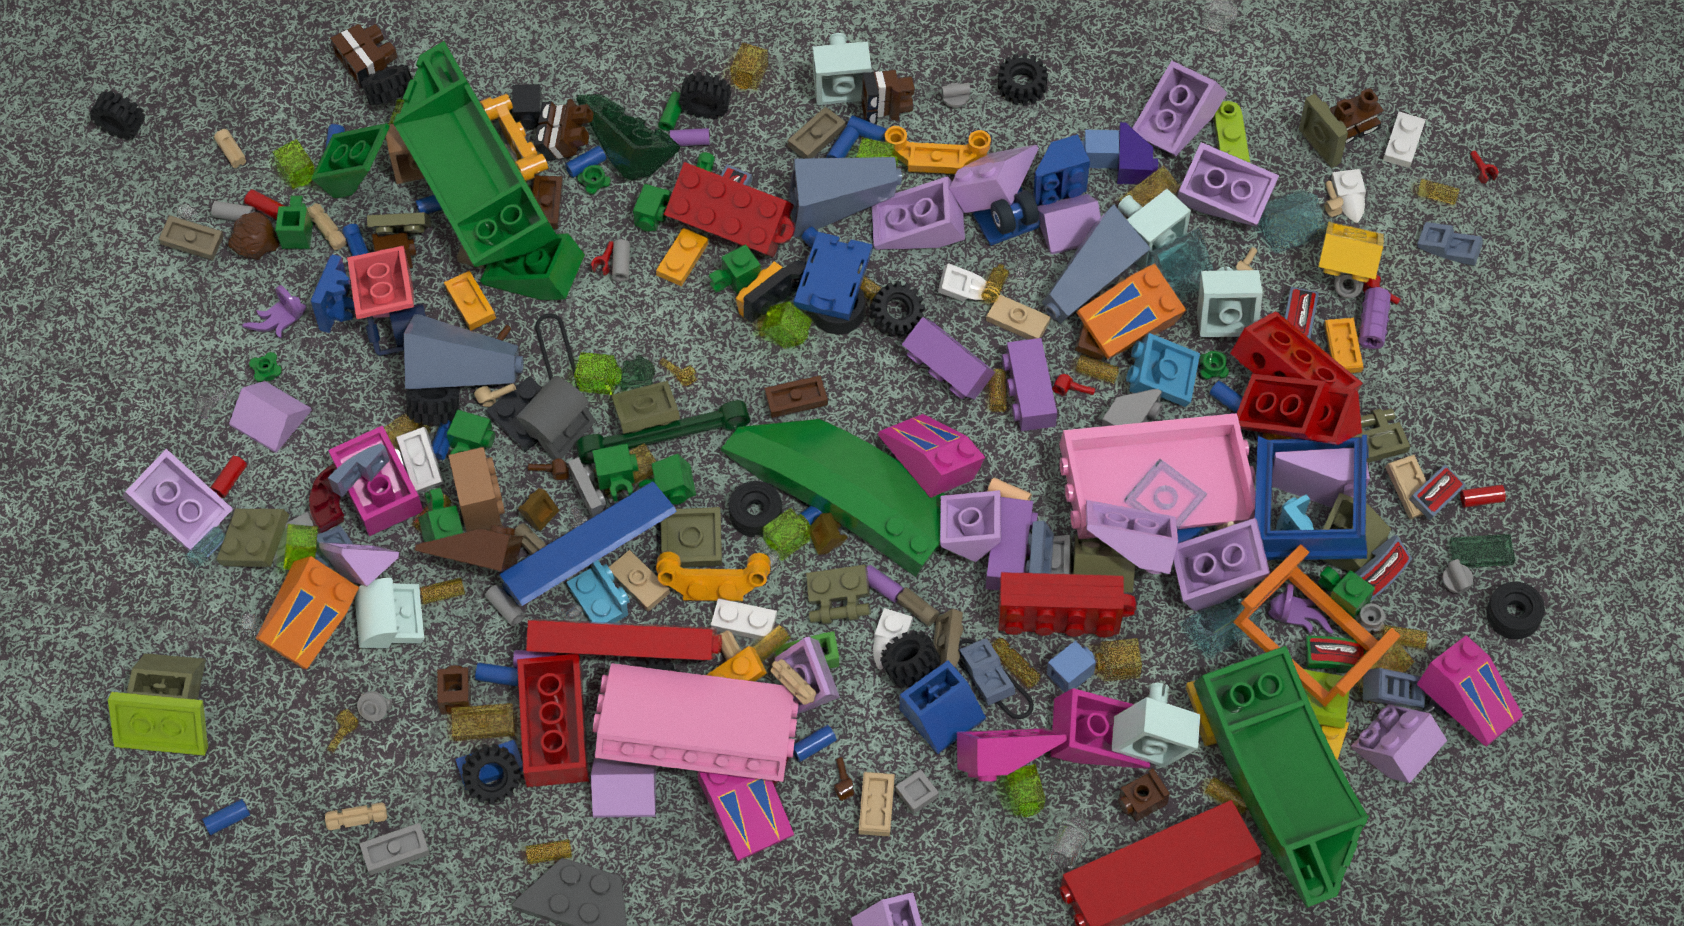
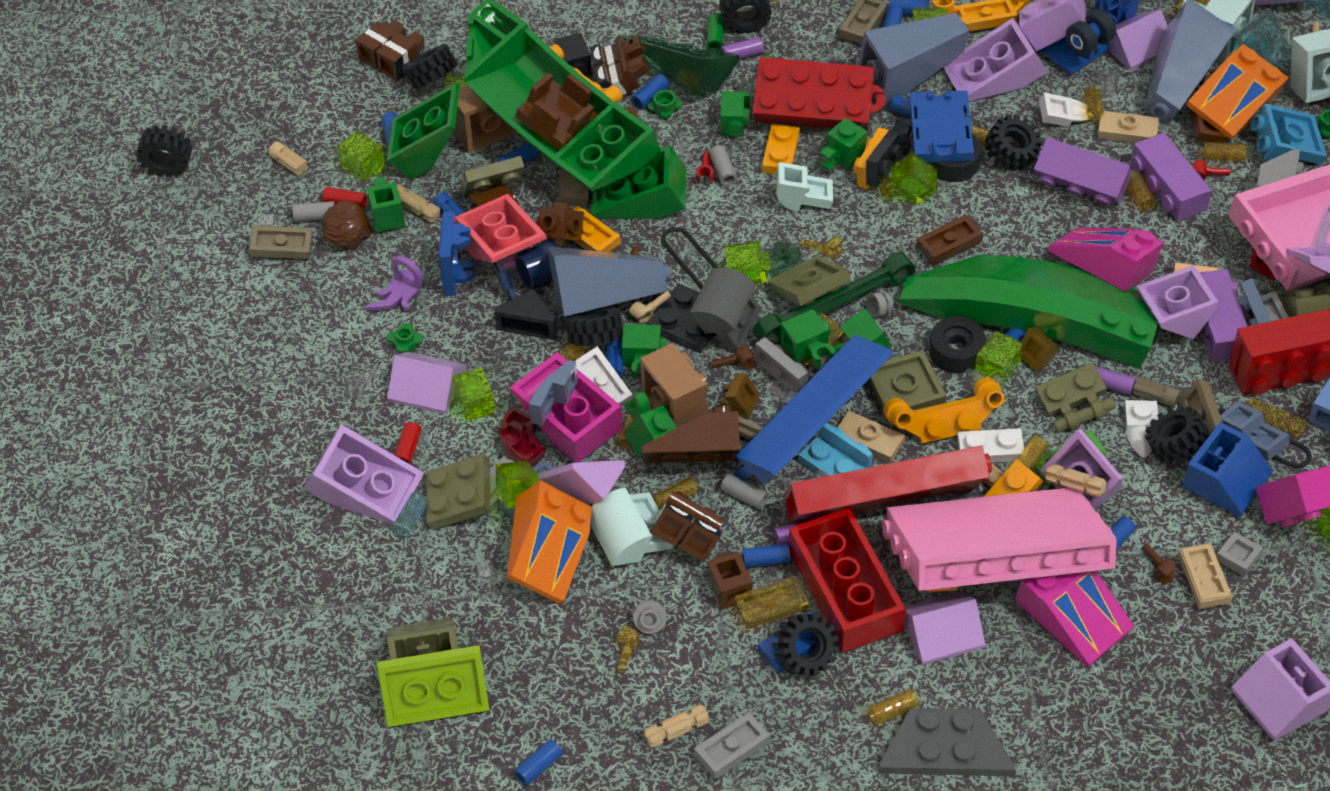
camera: 15 degrees left, 10 degrees down
(303, 442) = (474, 394): none -> clear neon green brick
(378, 374) = (526, 316): none -> black slope
(440, 289) = (560, 223): none -> reddish brown brick
(445, 628) = (688, 520): none -> reddish brown hips
(470, 175) = (557, 111): none -> reddish brown panel
(675, 305) = (798, 188): none -> light aqua brick
(703, 447) = (879, 304): none -> light grey plate

